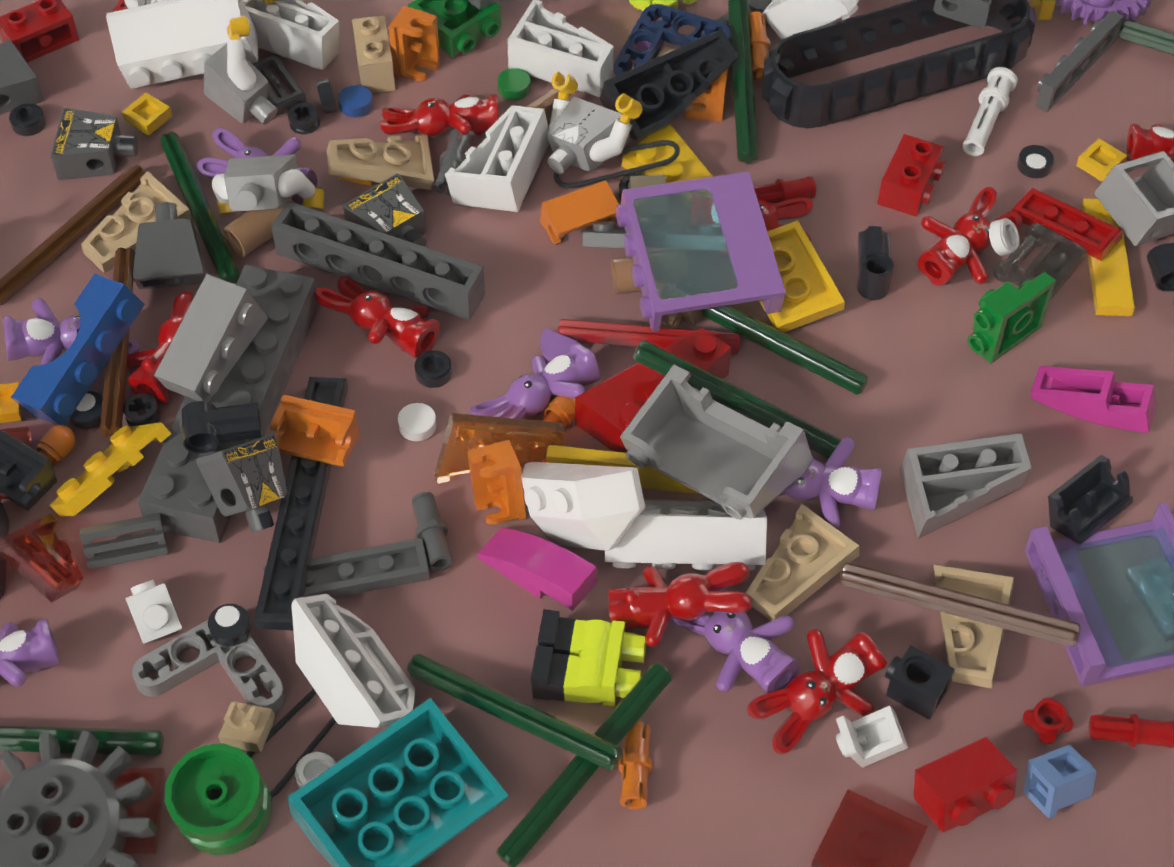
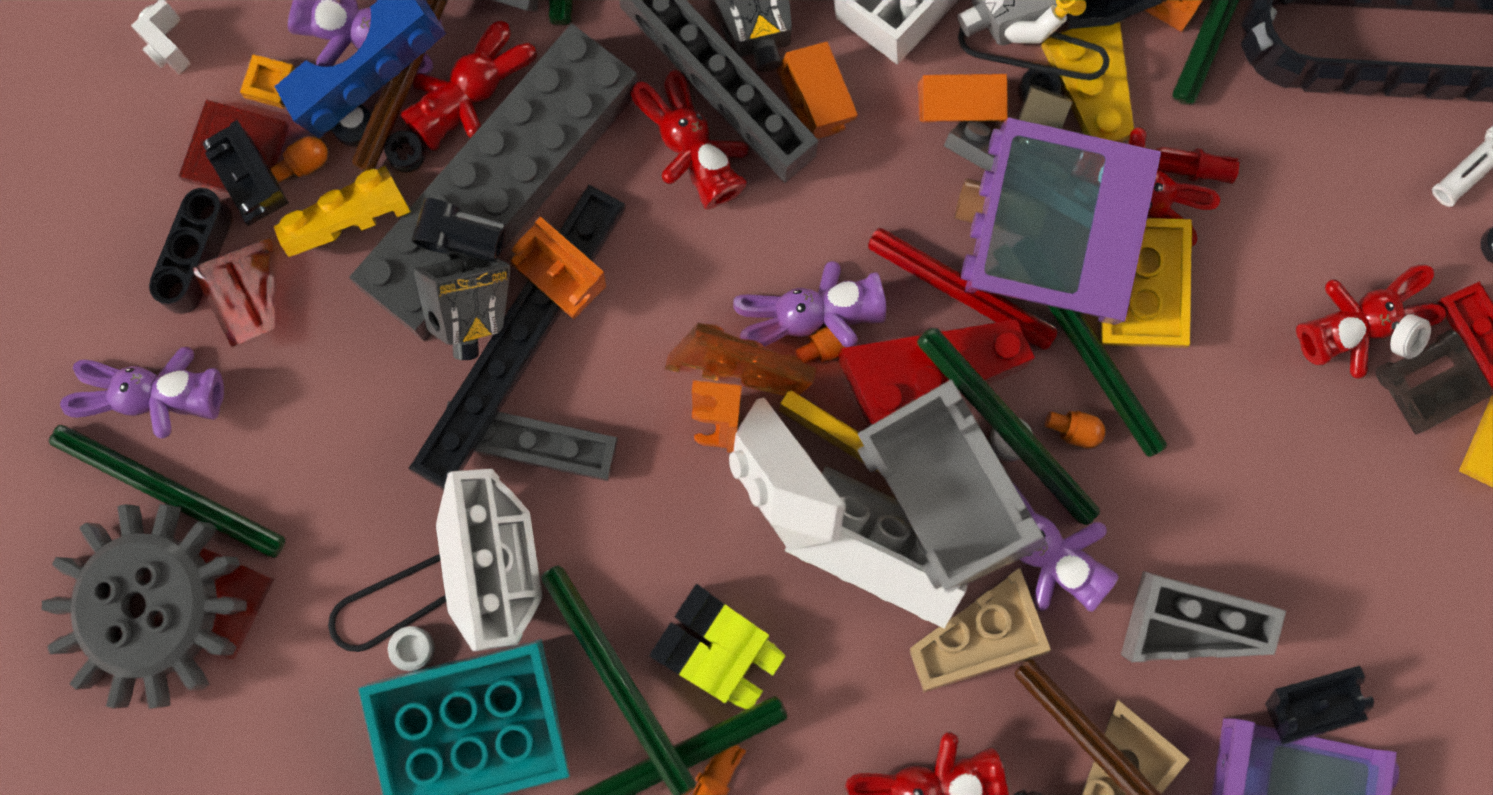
camera: 20 degrees right, 25 degrees up
(125, 547) = (326, 306): dark grey tile -> none
(152, 611) = (324, 398): white bracket -> none
(210, 339) = (486, 124): light grey wedge -> none
(218, 799) = (276, 641): green wheel -> none
(224, 654) = (377, 476): light grey beam -> none
(229, 624) = (387, 455): black tile -> none
(246, 726) = (365, 568): tan tile -> none
(417, 422) = (675, 287): white tile -> none
(432, 531) = (632, 428): dark grey pin -> none
(433, 369) = (720, 228): black tile -> none
(465, 241) = (816, 90): none -> orange hinge
(540, 566) = (718, 519): dark pink slope -> none
(554, 344) = (858, 259): medium lavender tile -> none
(685, 598) = (841, 635): red animal -> none
(747, 648) = (874, 688): medium lavender animal -> none
(792, 393) = (1077, 428): none -> orange cylinder
(874, 263) = (1250, 301): black piece -> none
(911, 175) = (1352, 205): red brick -> none
(1009, 316) = (1351, 447): green plate -> none
(1096, 397) = (1397, 579): dark pink slope -> none

